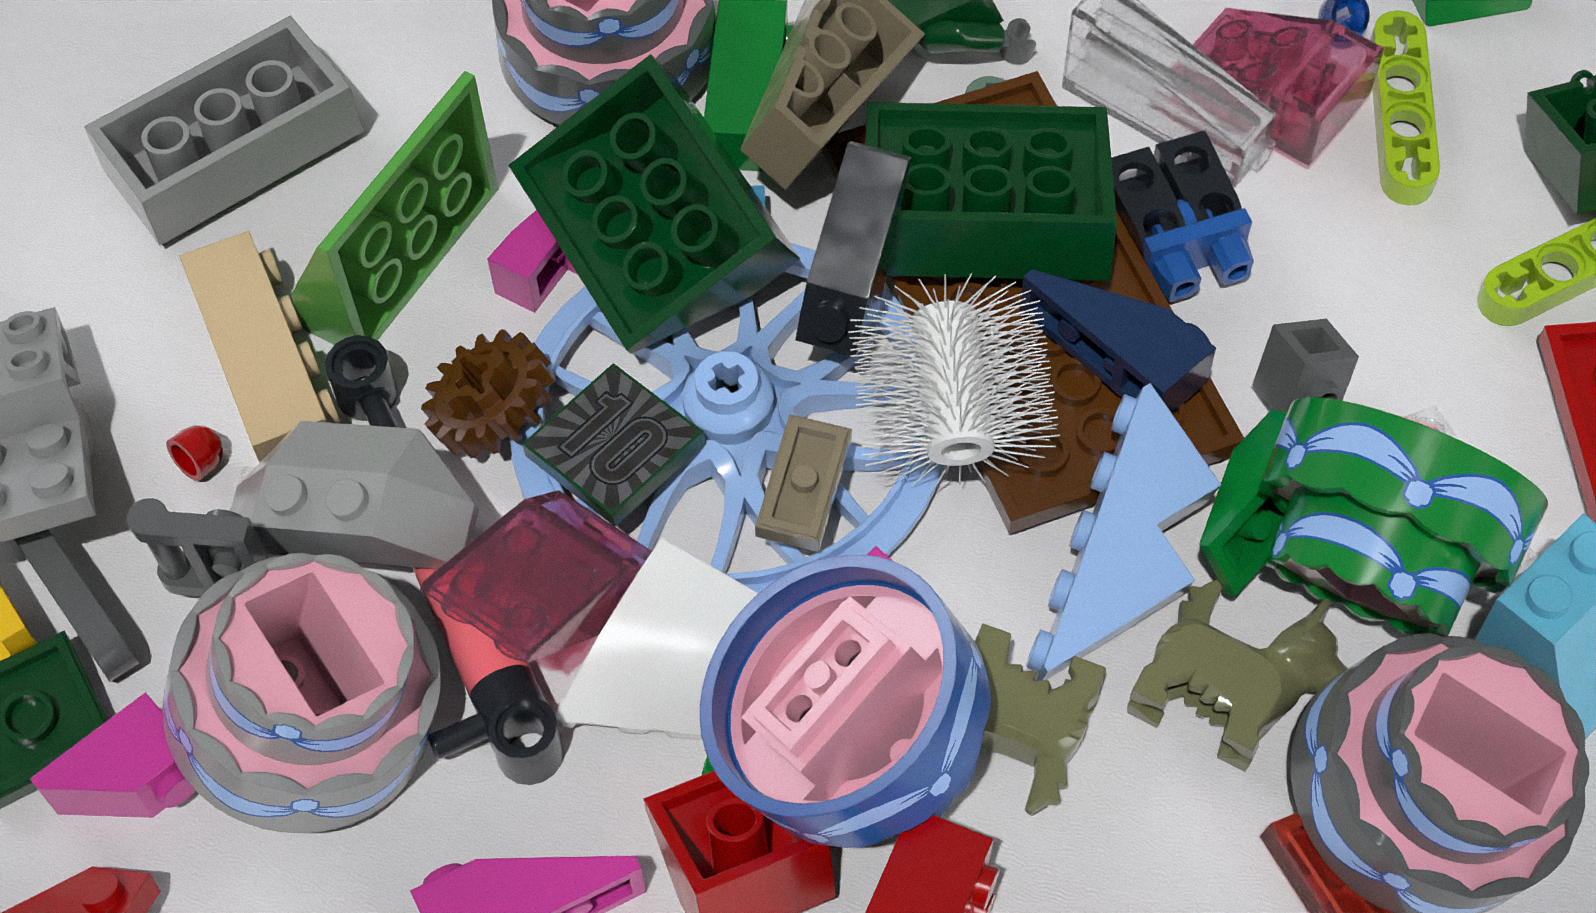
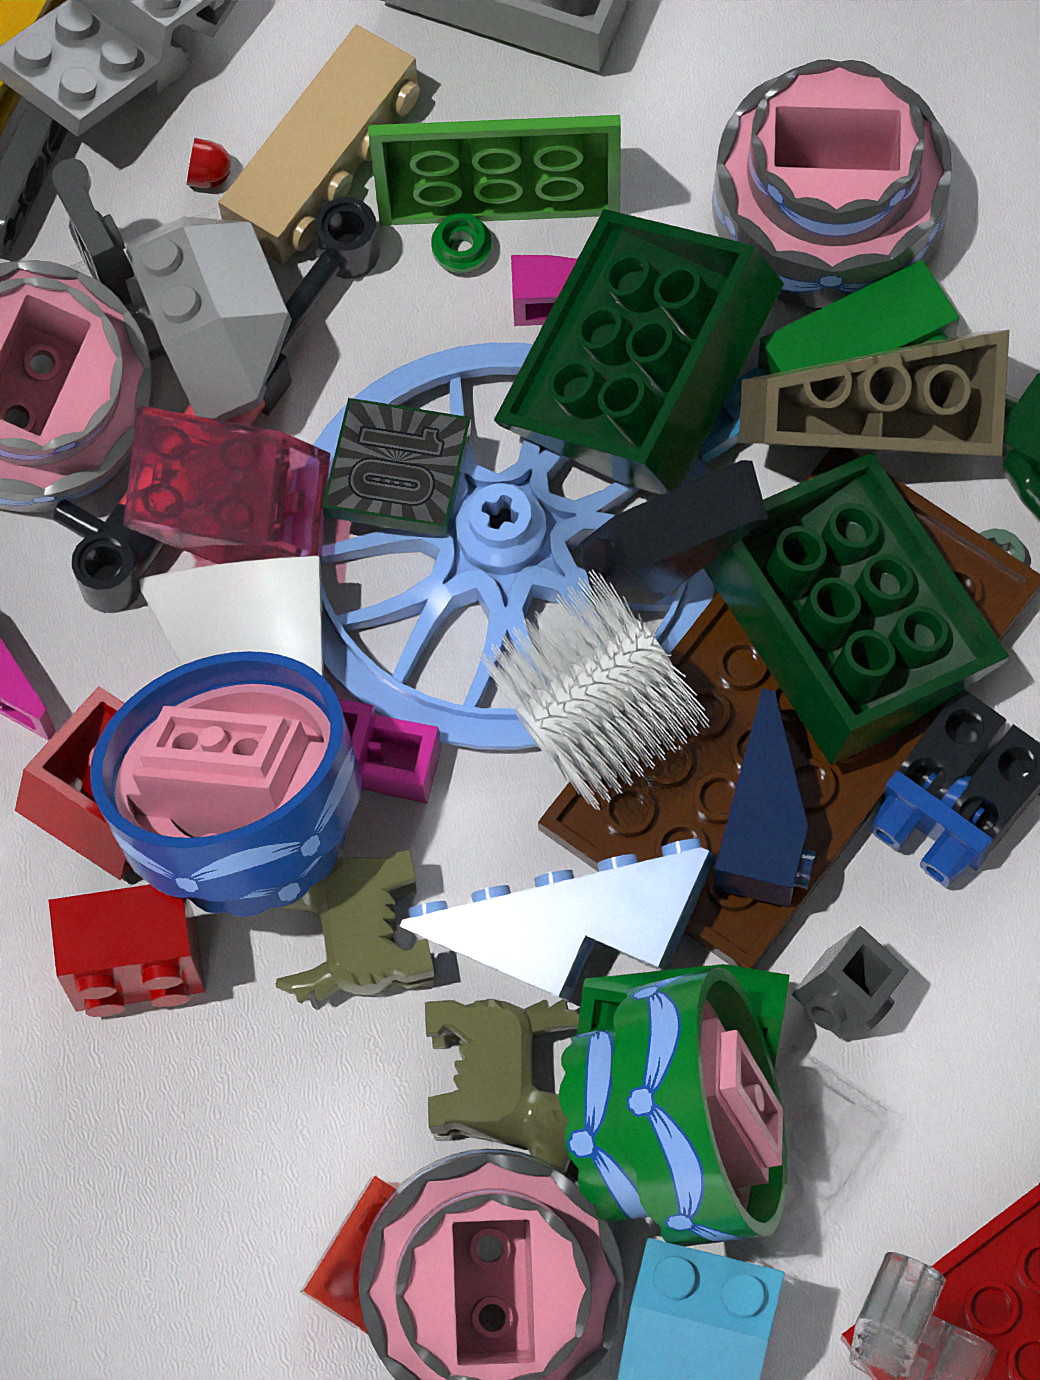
camera: 60 degrees right, 10 degrees up
(431, 290) = (461, 228): none -> green plate
(488, 393) = (391, 341): reddish brown gear -> none
(803, 483) = (452, 634): dark tan plate -> none

